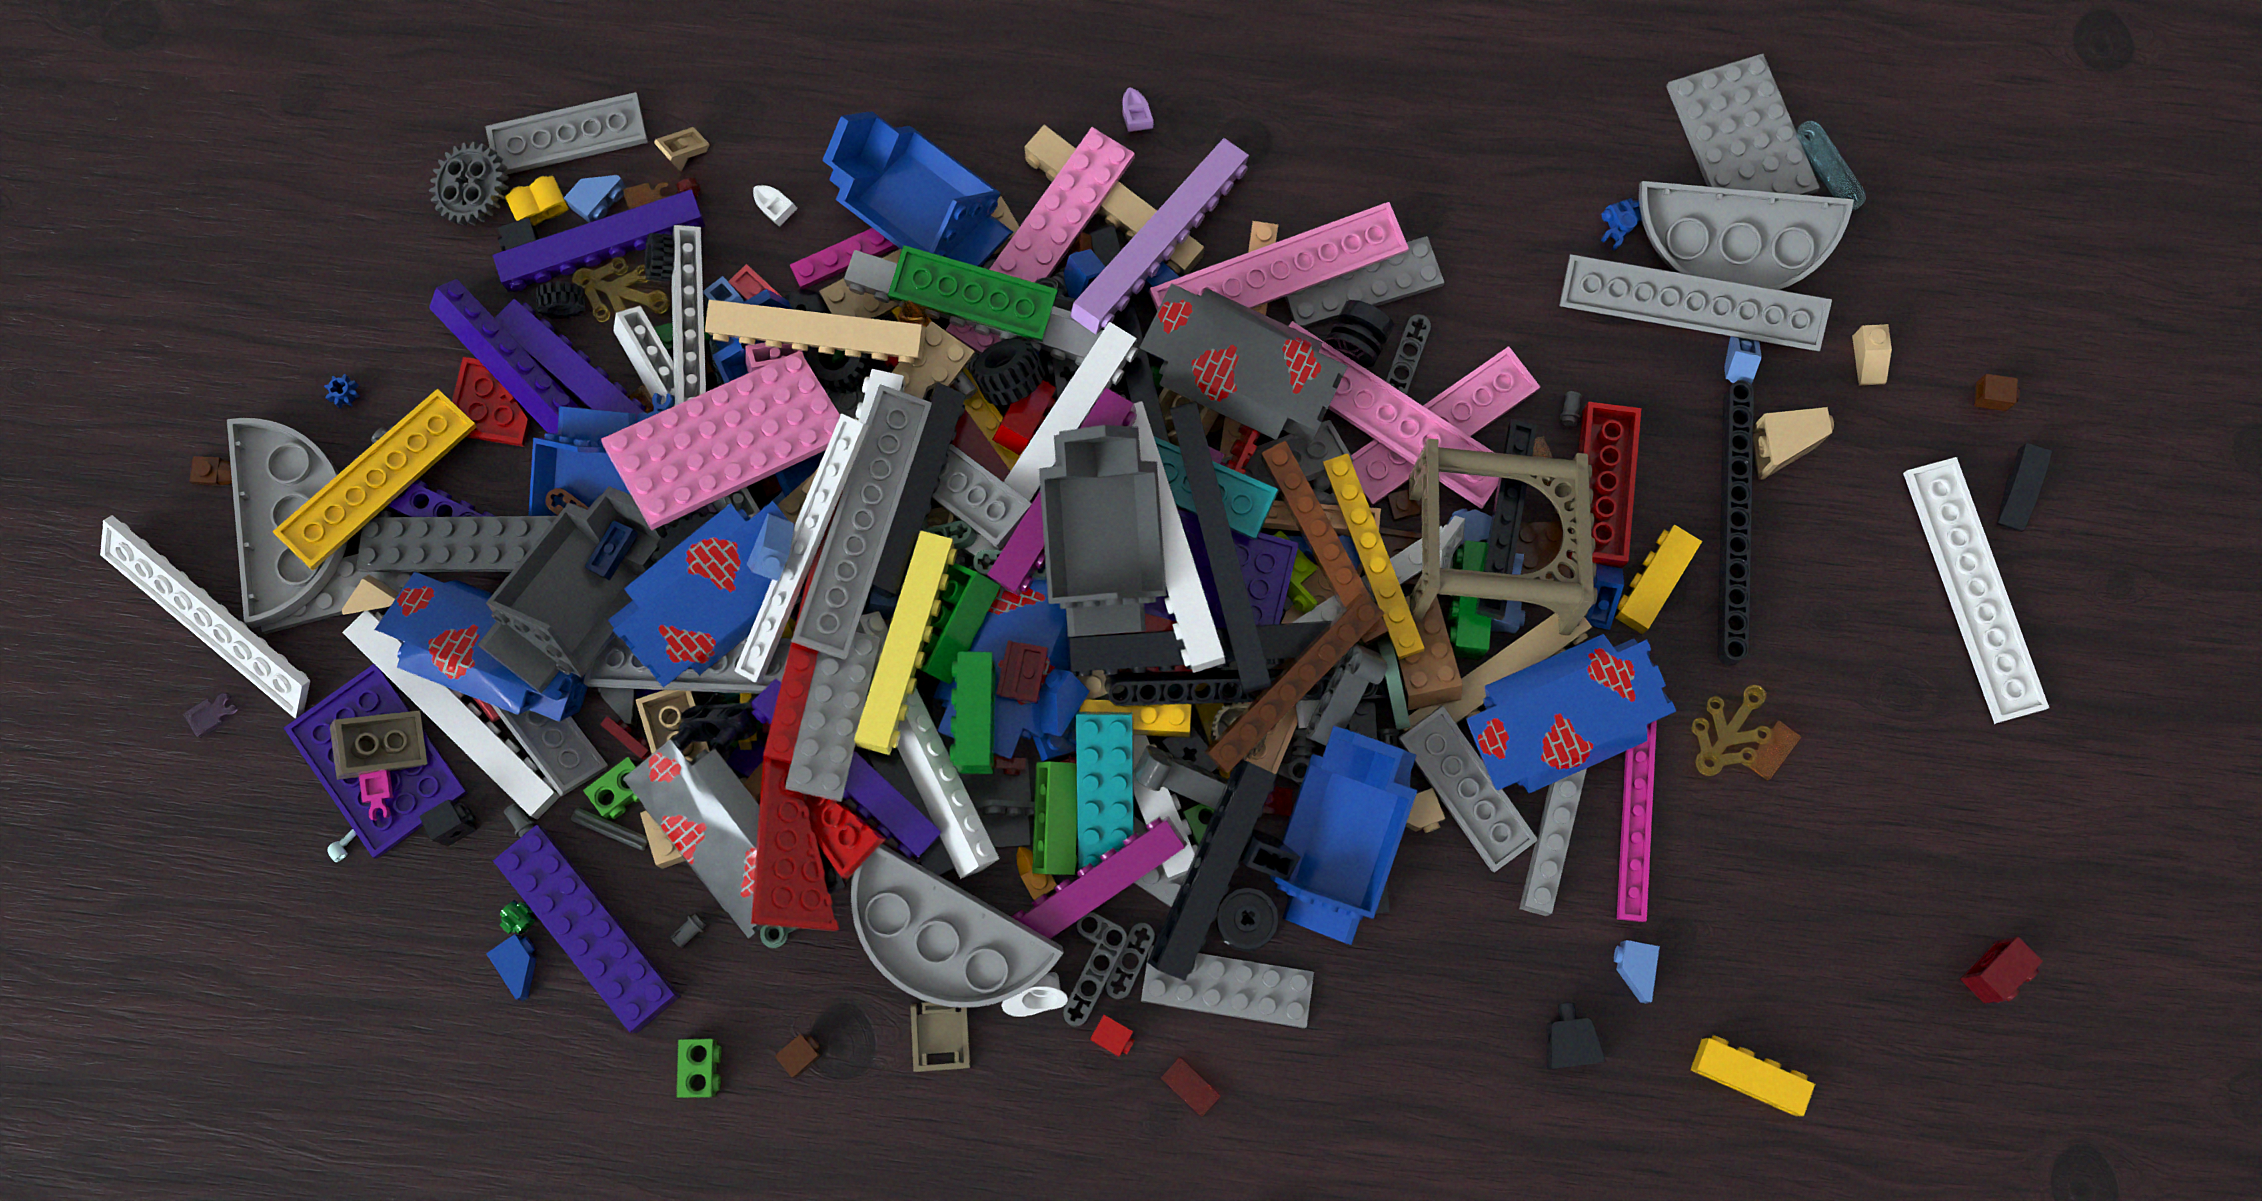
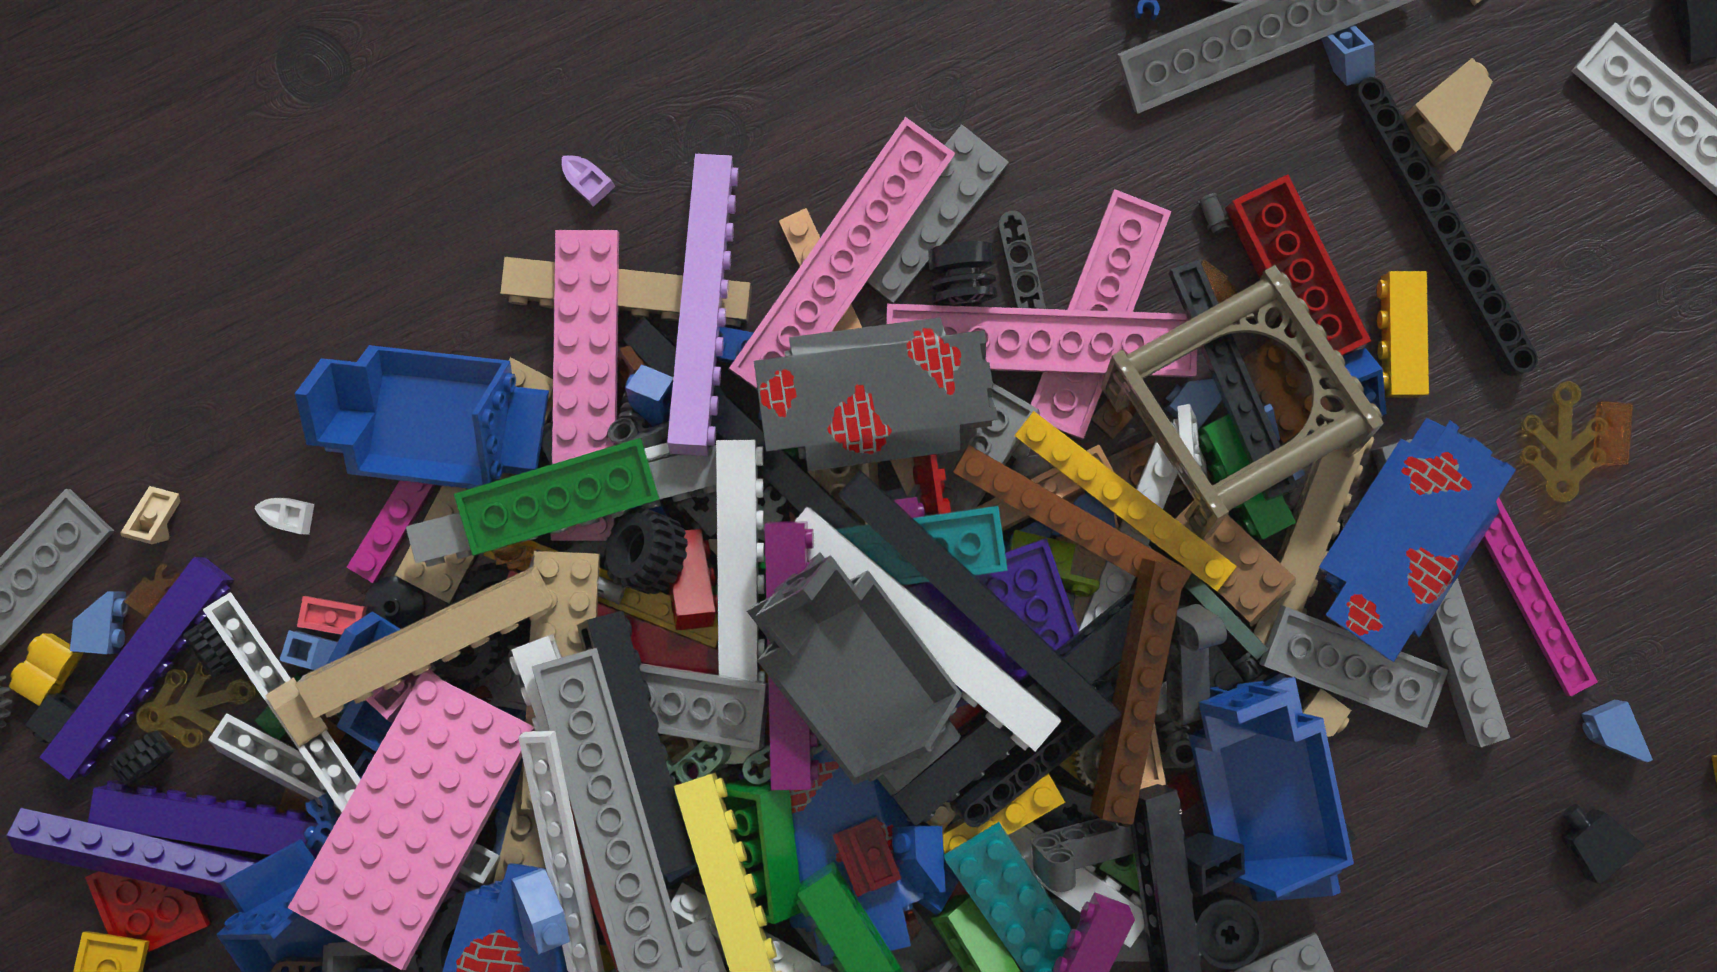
camera: 30 degrees left, 10 degrees up
(688, 184) = (188, 552): clear red plate -> none
(692, 326) = (295, 713): none -> tan slope

